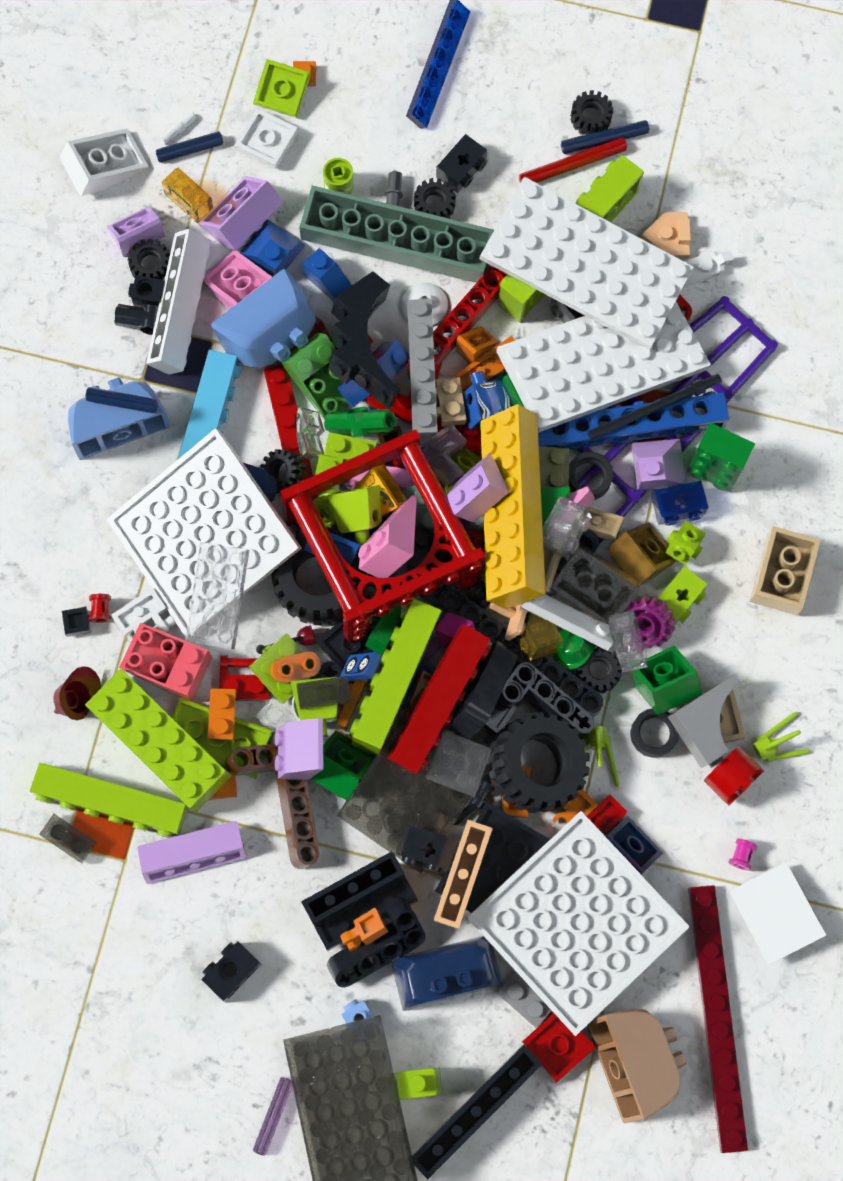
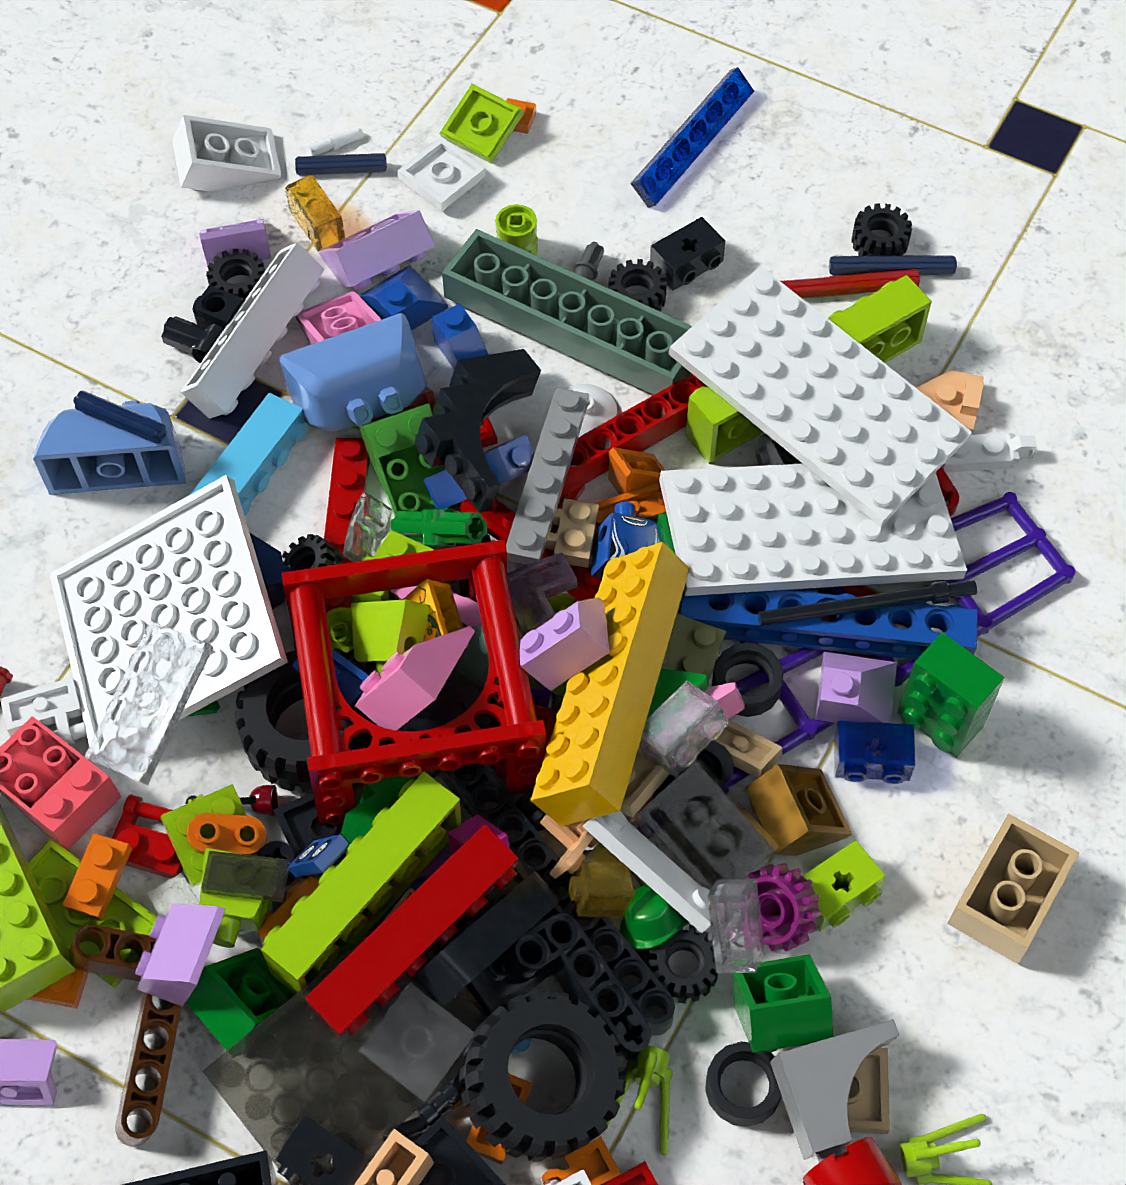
camera: 20 degrees right, 15 degrees down
(685, 543) = (867, 809): lime brick -> none

